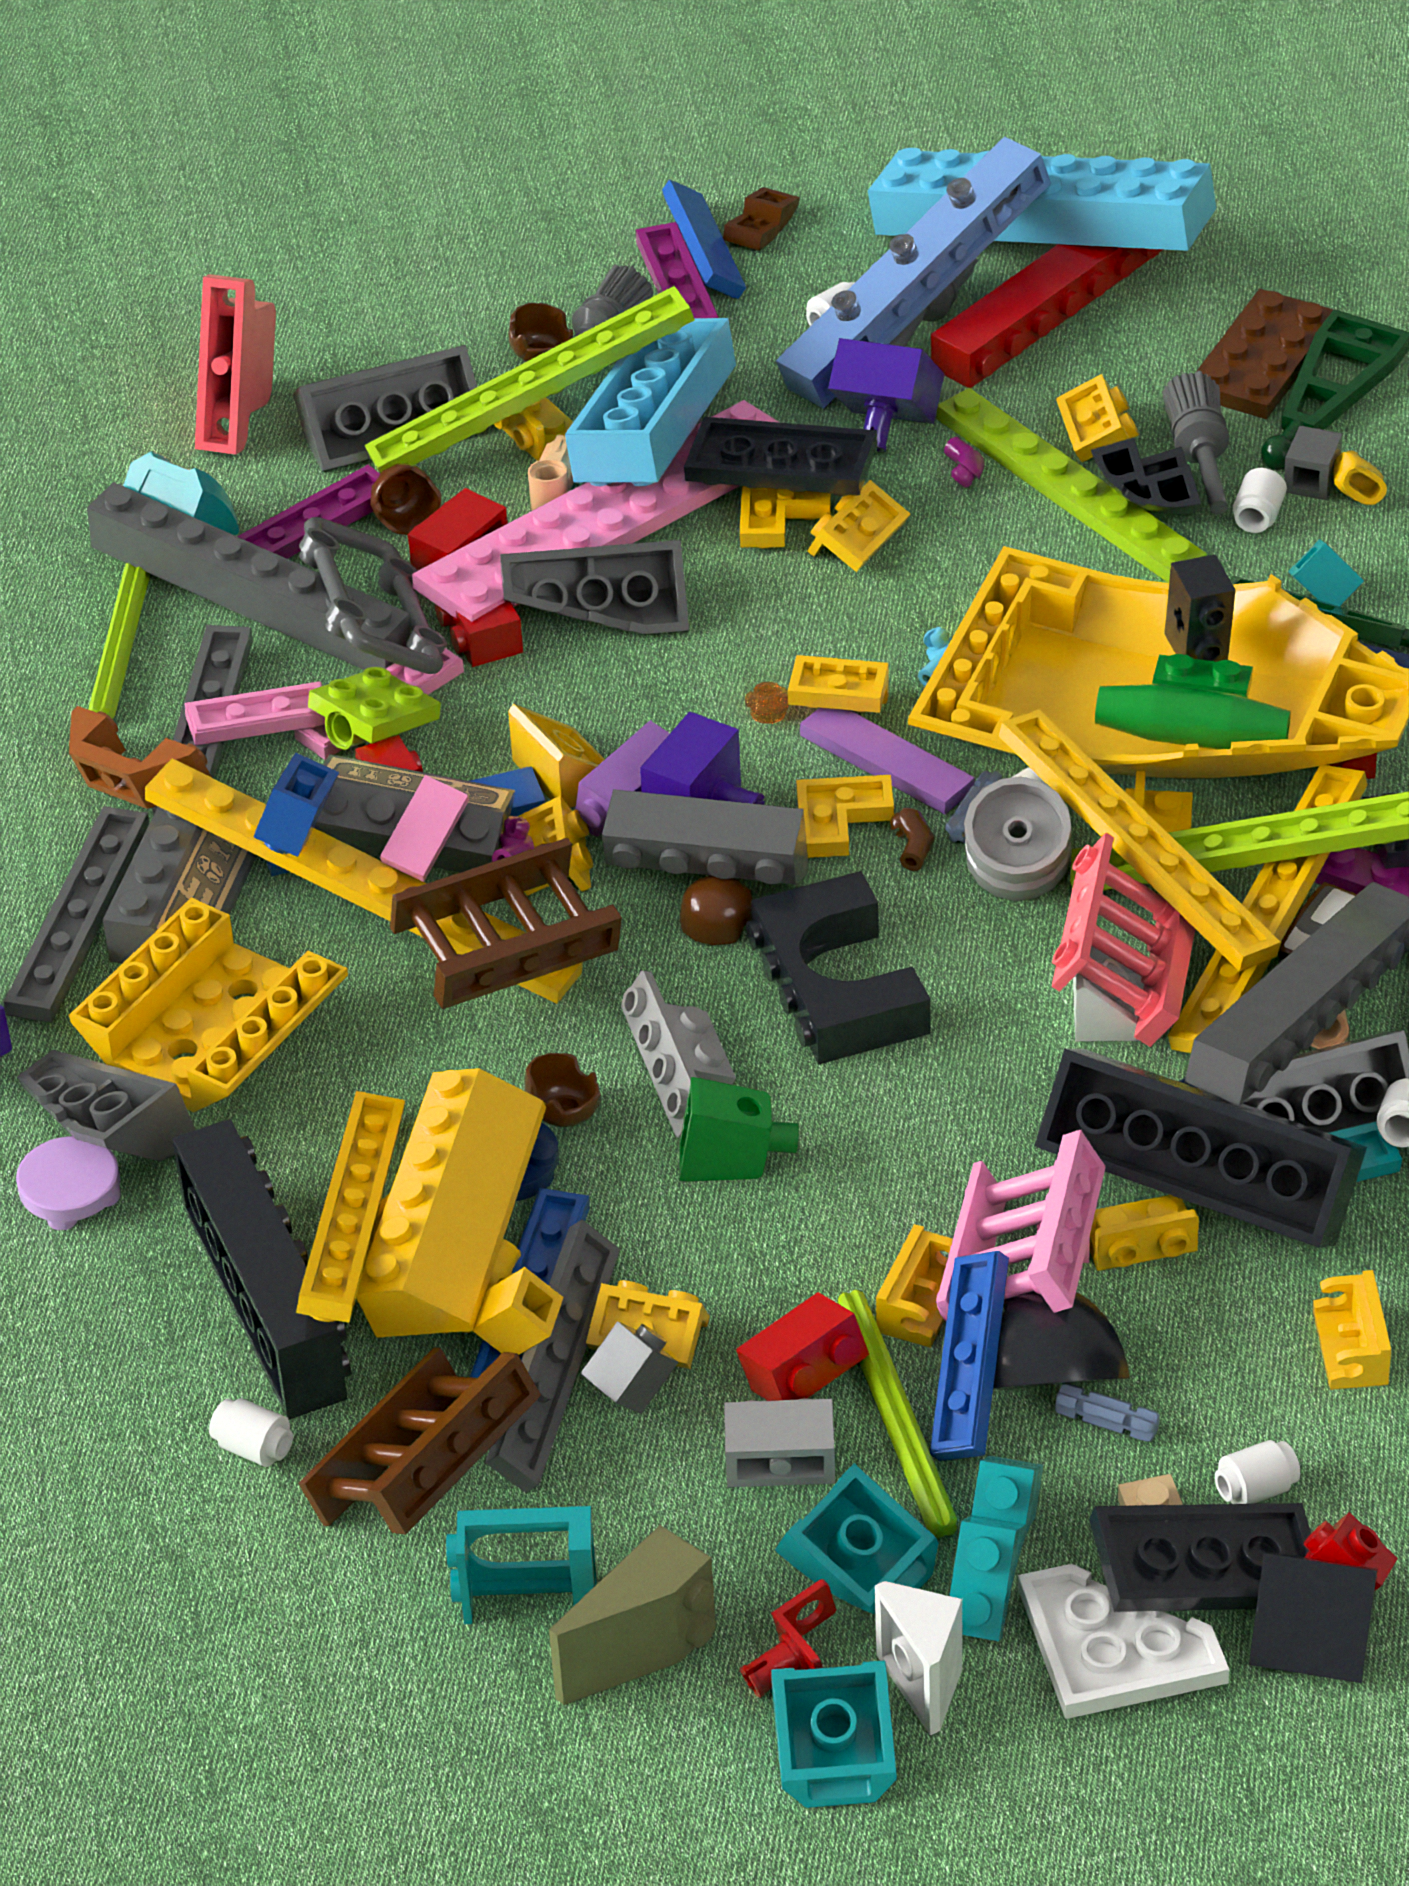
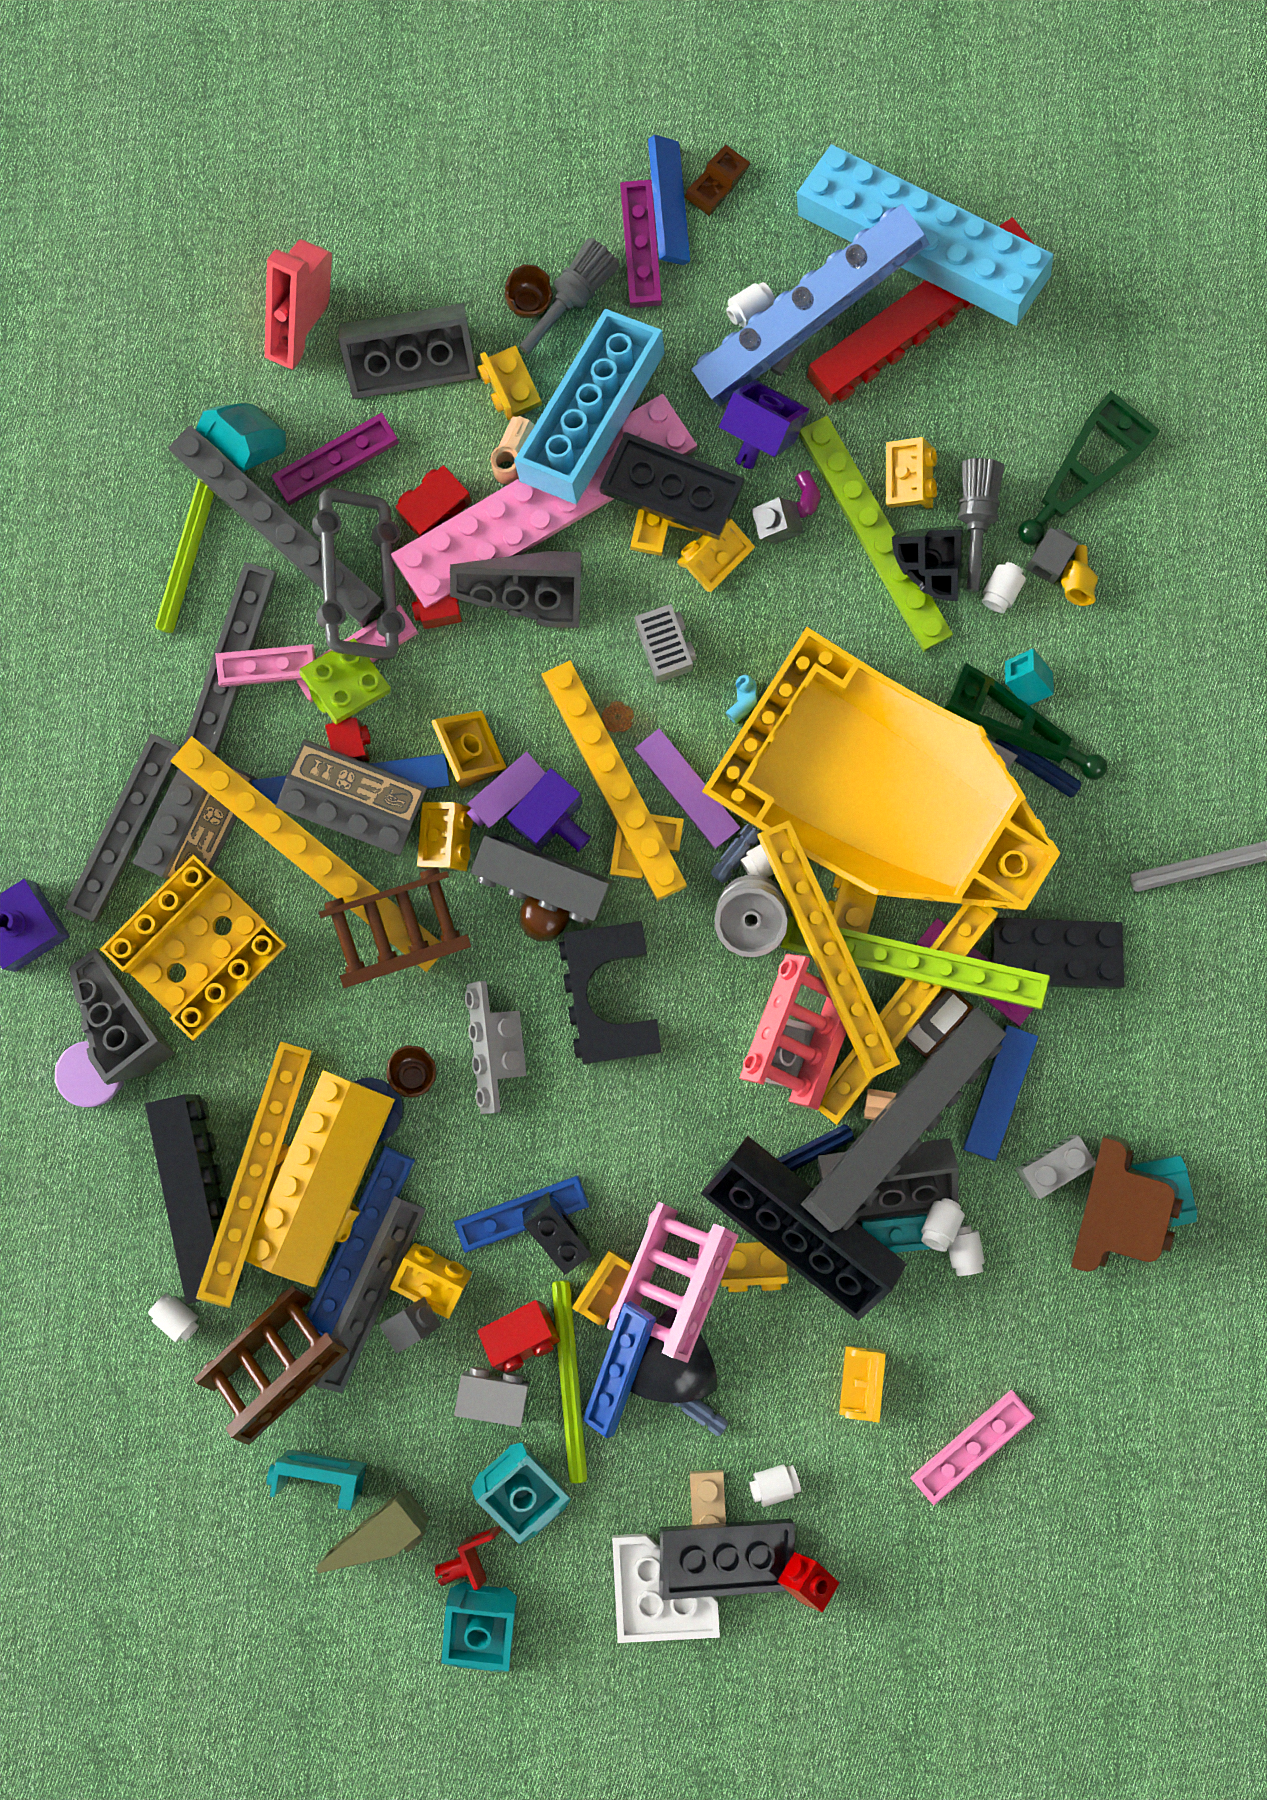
camera: 15 degrees right, 40 degrees up
(100, 760) = (149, 672): dark orange slope -> none
(295, 805) = (266, 812): blue slope -> none
(404, 497) = (401, 459): reddish brown hair -> none
(424, 828) = (353, 837): bright pink tile -> none
(514, 838) = (419, 844): magenta arm -> none
(518, 1312) = (346, 1278): yellow brick -> none
(532, 381) = (507, 371): lime plate -> none
(729, 1132) = (498, 1135): green torso -> none
(768, 1235) = (507, 1217): none -> blue tile
(785, 753) = (614, 781): none -> yellow plate
(812, 615) = (664, 643): none -> light grey brick
(829, 1220) = (556, 1233): none -> black brick
(839, 684) = (666, 724): yellow bracket -> none
(919, 836) = (691, 872): reddish brown arm -> none
(921, 1647) = (541, 1596): white slope -> none
(933, 478) = (777, 520): none -> dark grey brick
(993, 1542) = (604, 1510): teal arch -> none
(1192, 705) = (899, 832): green plate -> none
(1200, 609) = (922, 755): black brick -> none
(1263, 351) = (1048, 417): reddish brown plate -> none
(1313, 1617) = (778, 1616): black tile -> none

